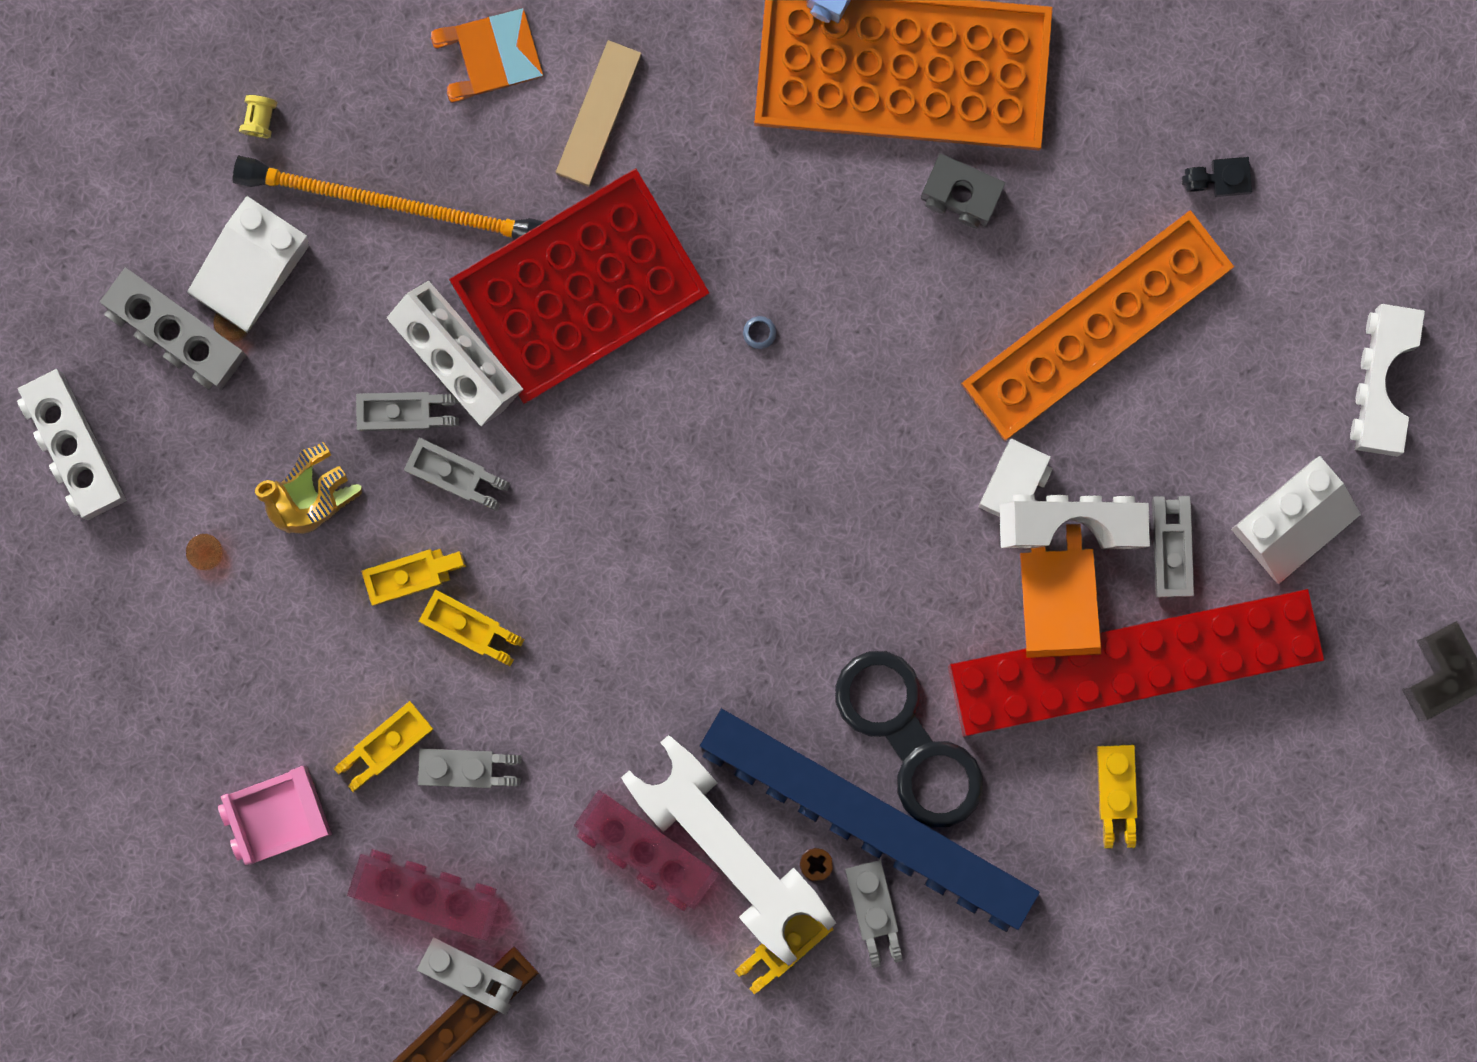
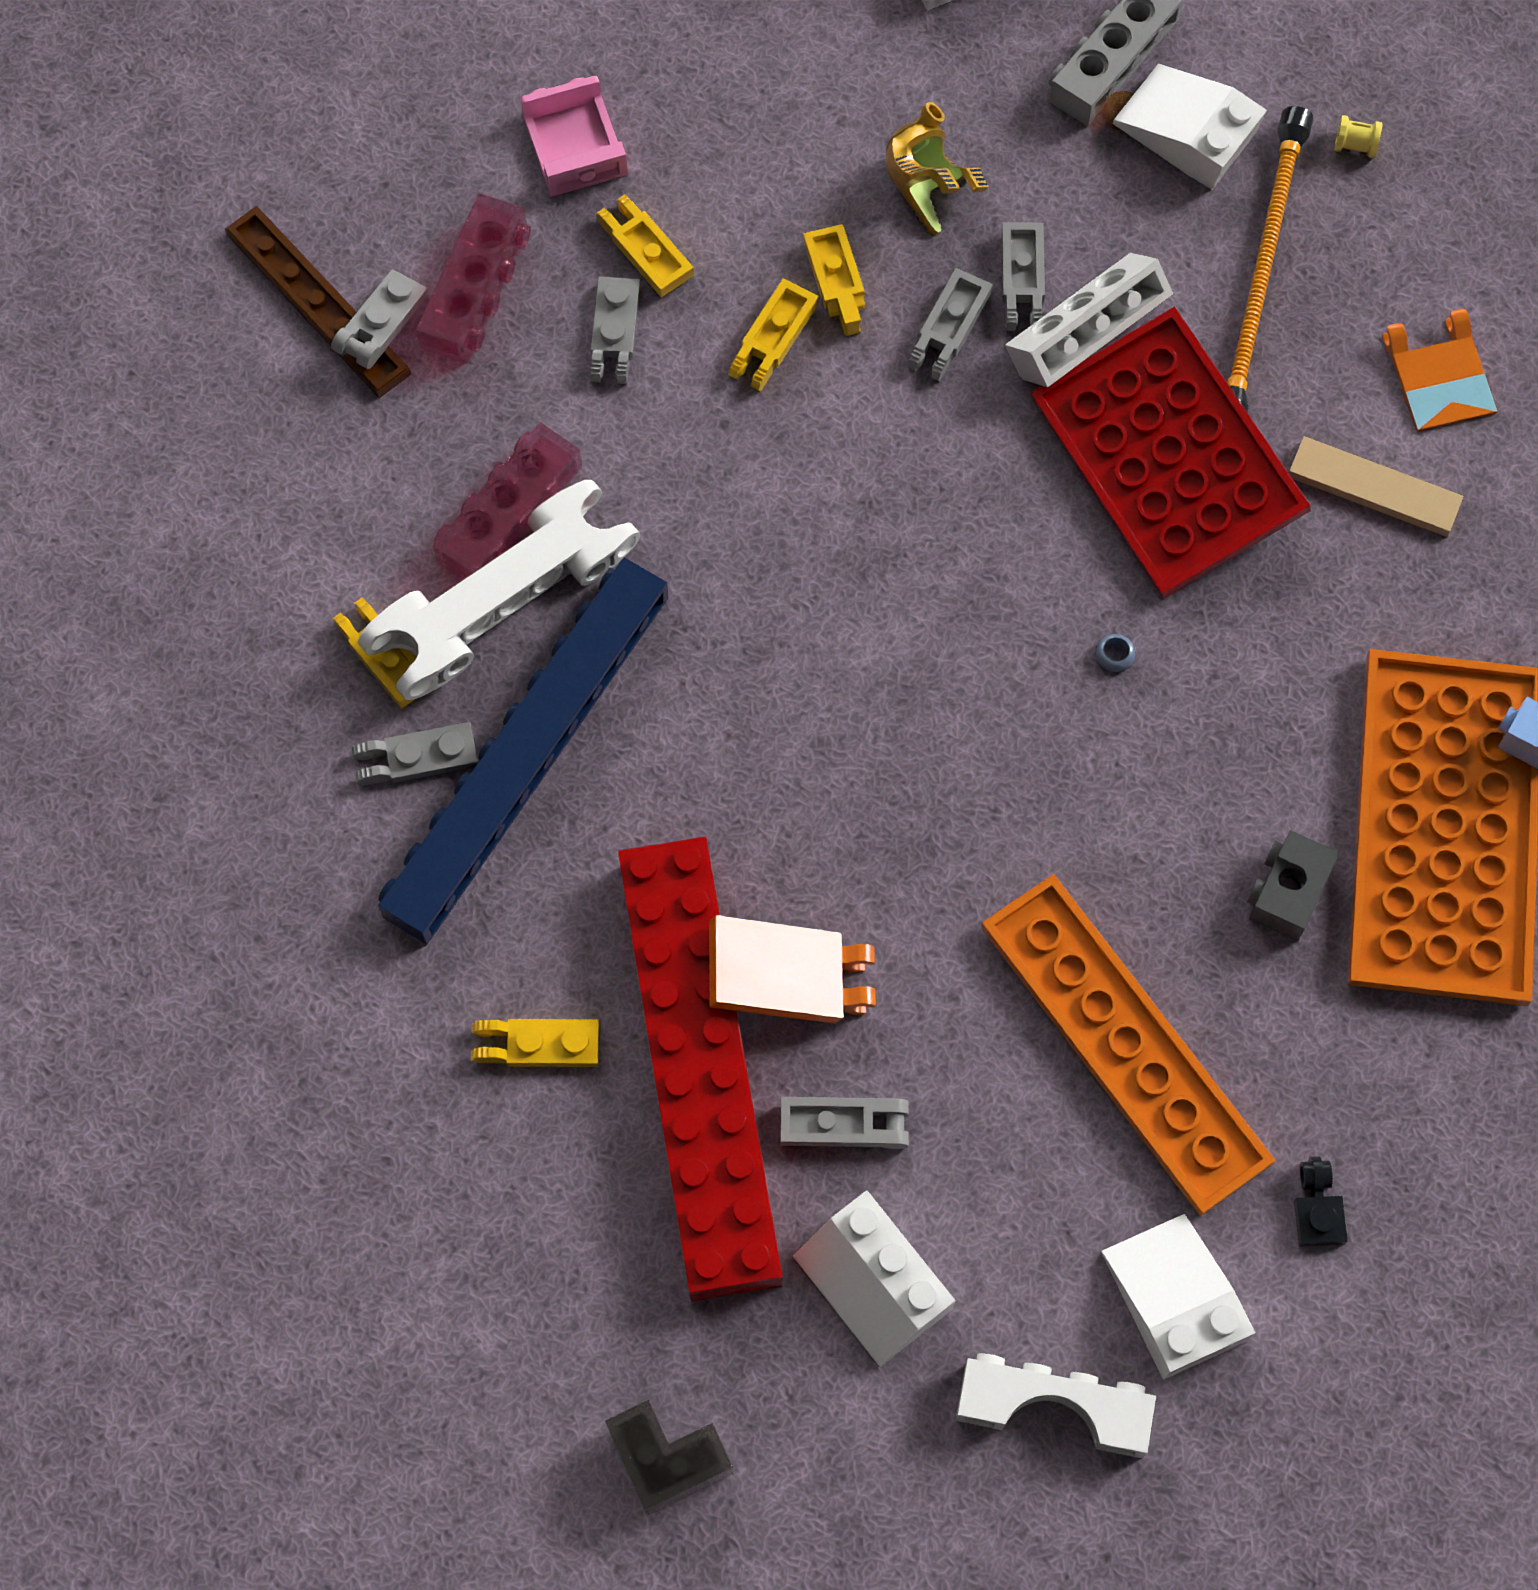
camera: 95 degrees right, 15 degrees down
(204, 552) = (868, 79): clear orange tile -> none
(827, 863) = (475, 699): reddish brown bush -> none
(909, 739) = (620, 801): black bar -> none
(1016, 474) = (928, 932): white brick -> none
(1114, 524) = (874, 1050): white arch -> none
(1298, 287) = (1177, 1296): none -> white slope

